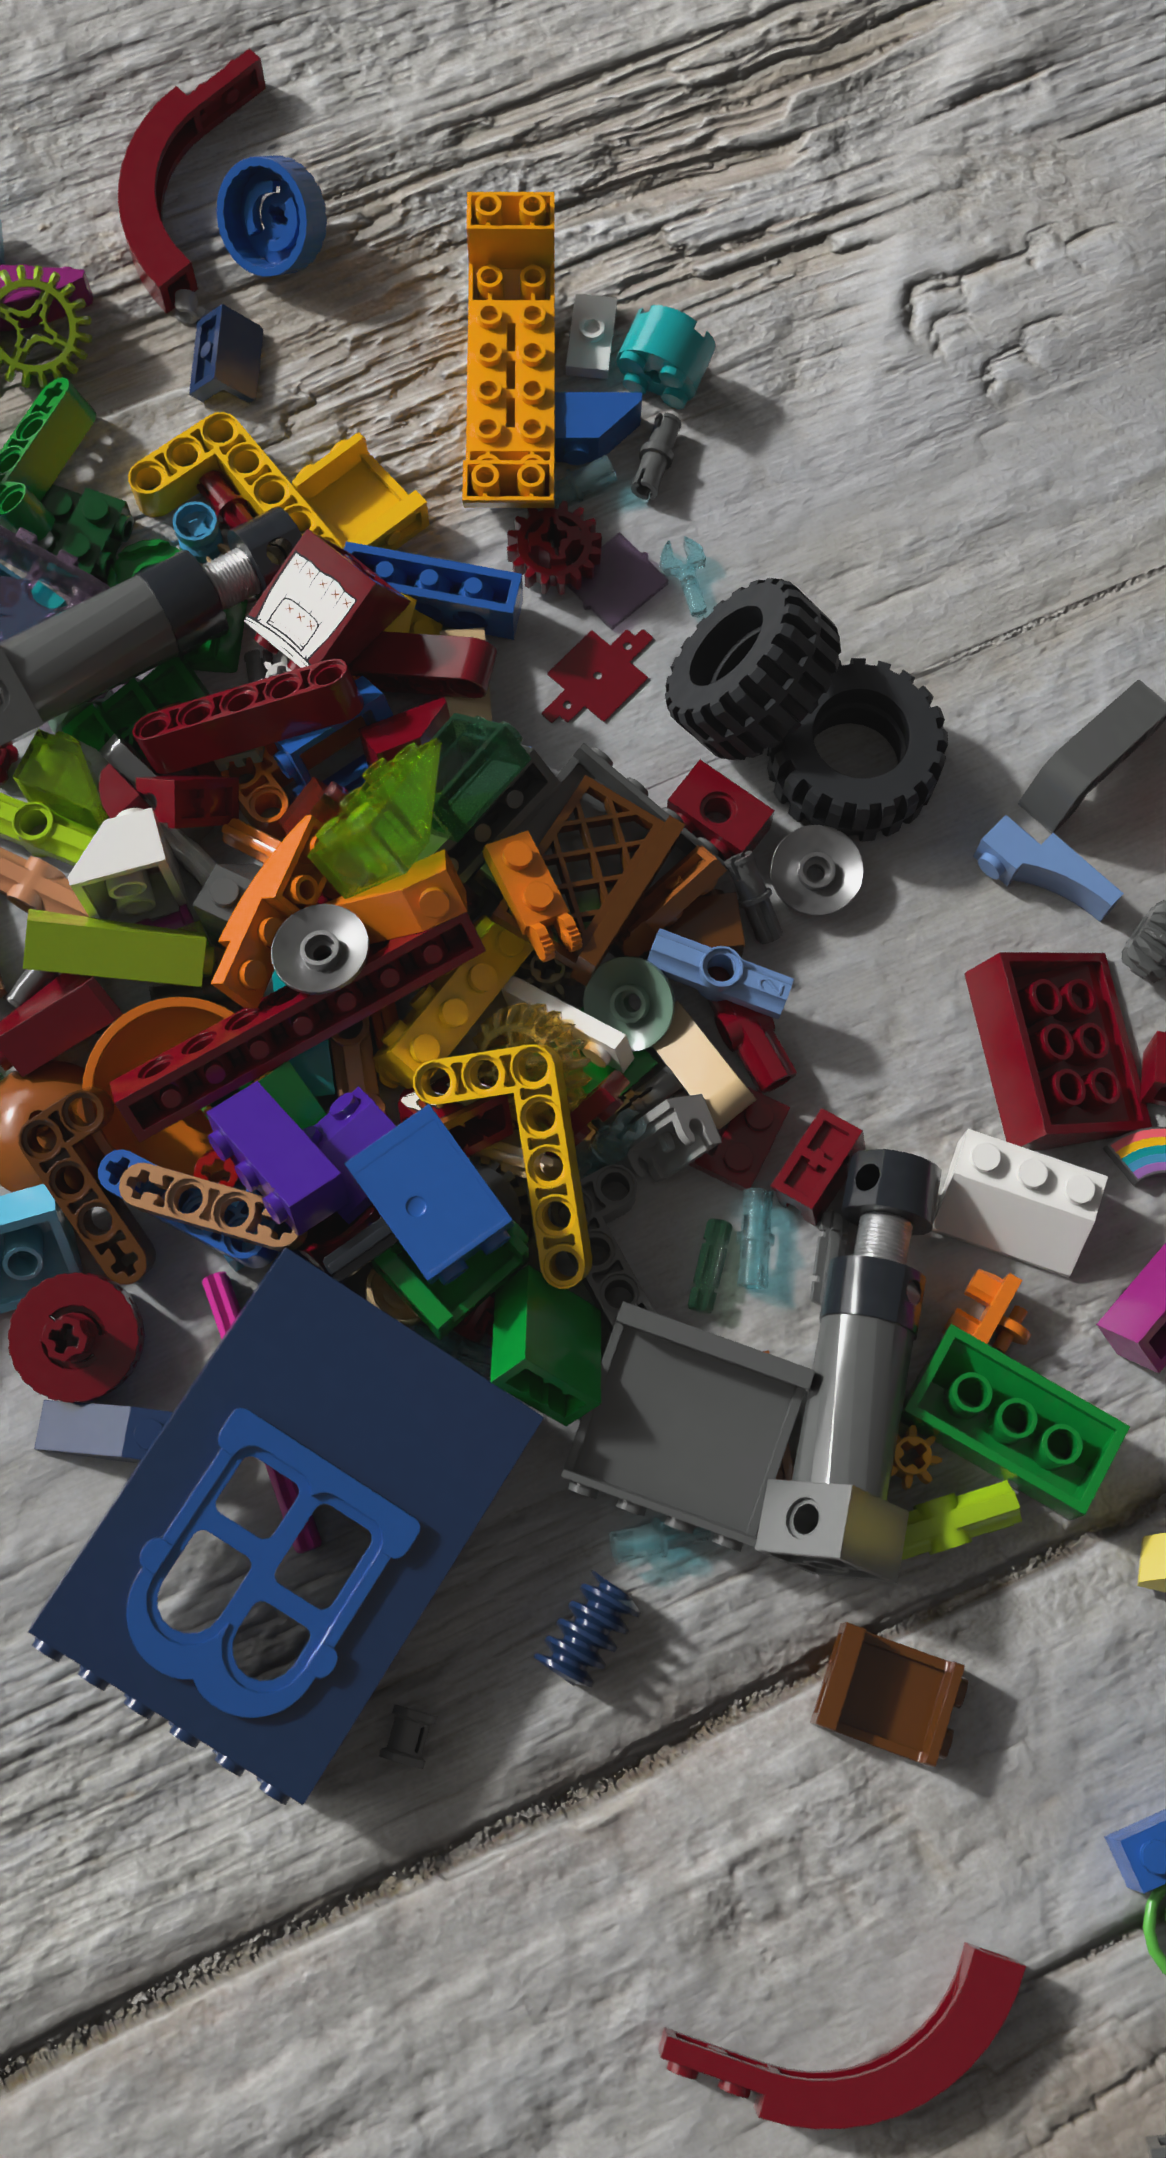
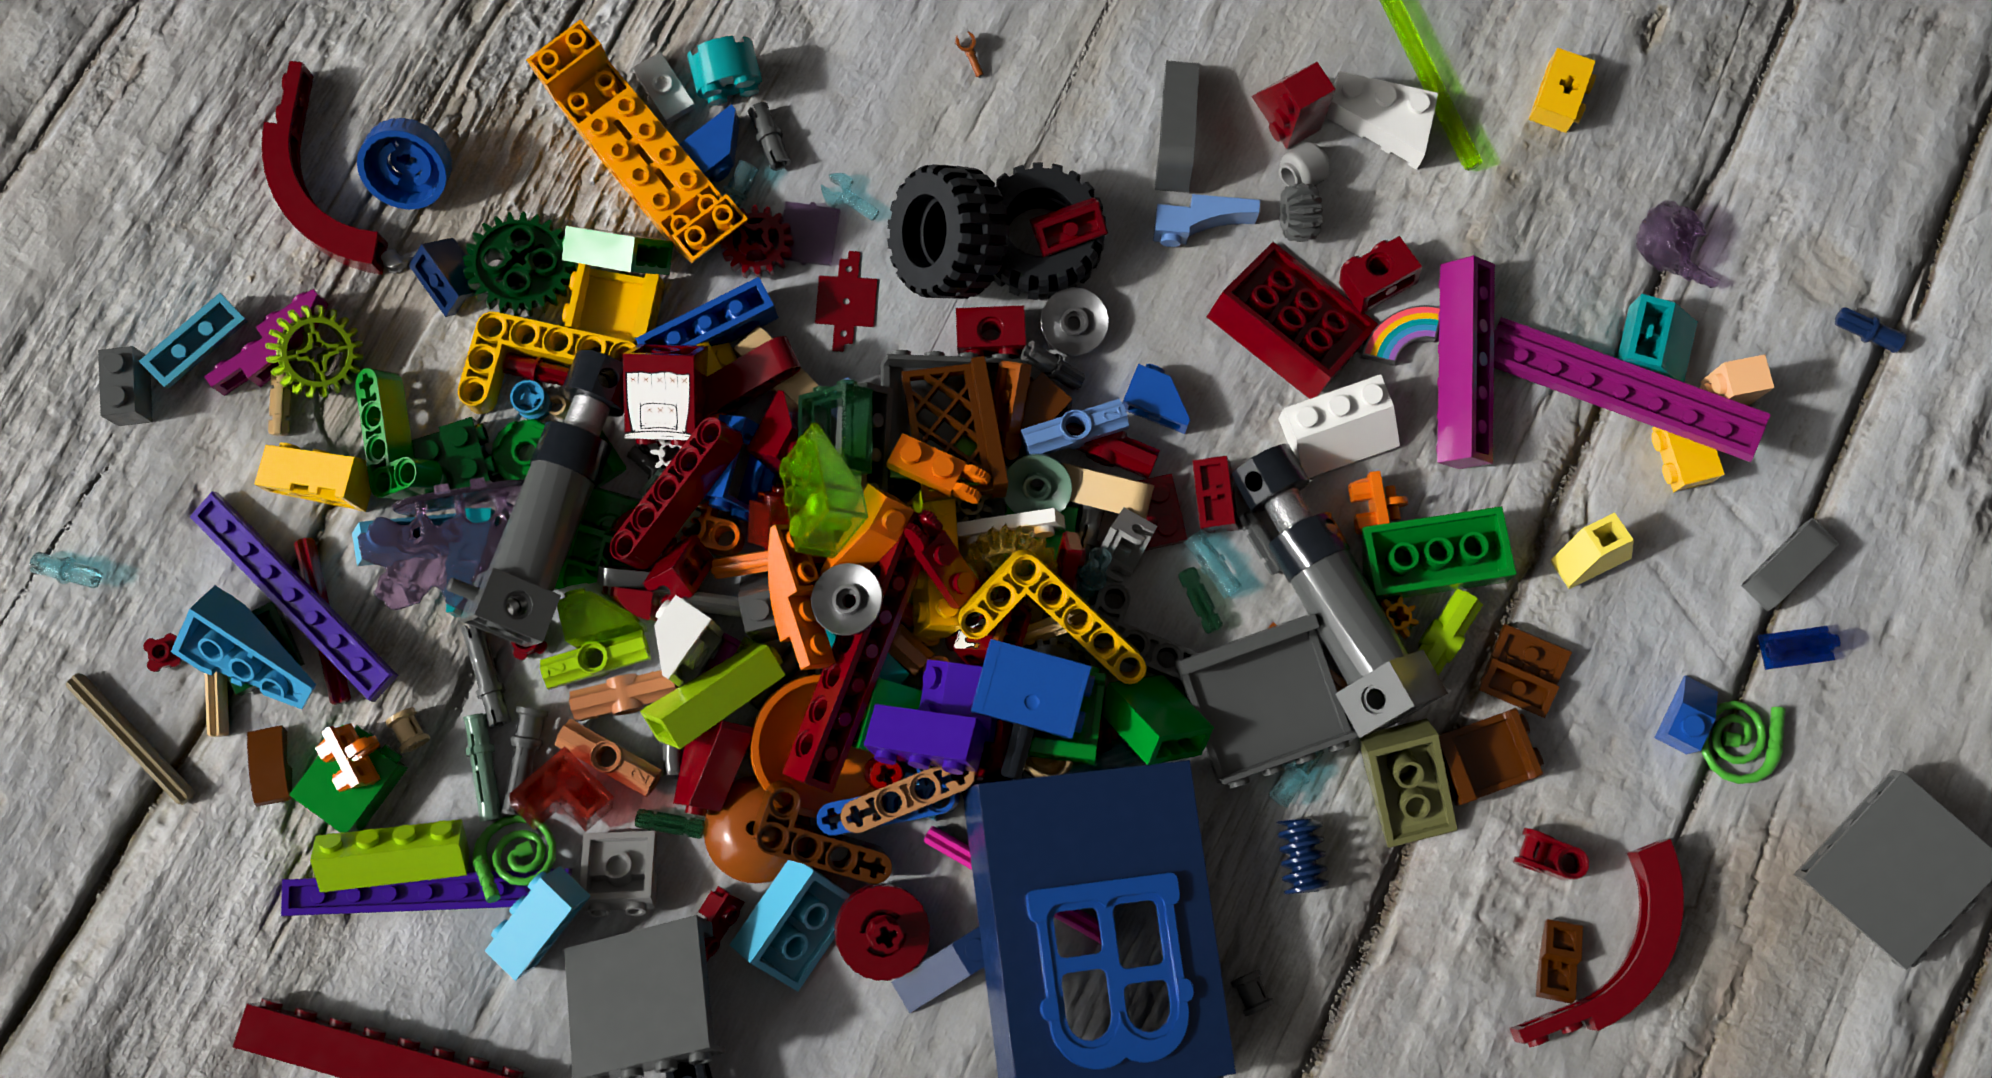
camera: 35 degrees left, 5 degrees up
(301, 395) = (518, 264): none -> dark green gear
(403, 444) = (617, 250): none -> brick
(456, 991) = (942, 560): none -> dark red hinge
(775, 1650) = (1408, 782): none -> olive slope
(783, 1999) = (1559, 960): none -> reddish brown slope
(836, 1014) = (1156, 398): none -> blue slope
(868, 1866) = (1544, 855): none -> dark red piece
(886, 760) = (1069, 226): none -> dark red slope
(934, 527) = (971, 54): none -> dark orange hand
(1012, 1635) = (1524, 670): none -> reddish brown slope

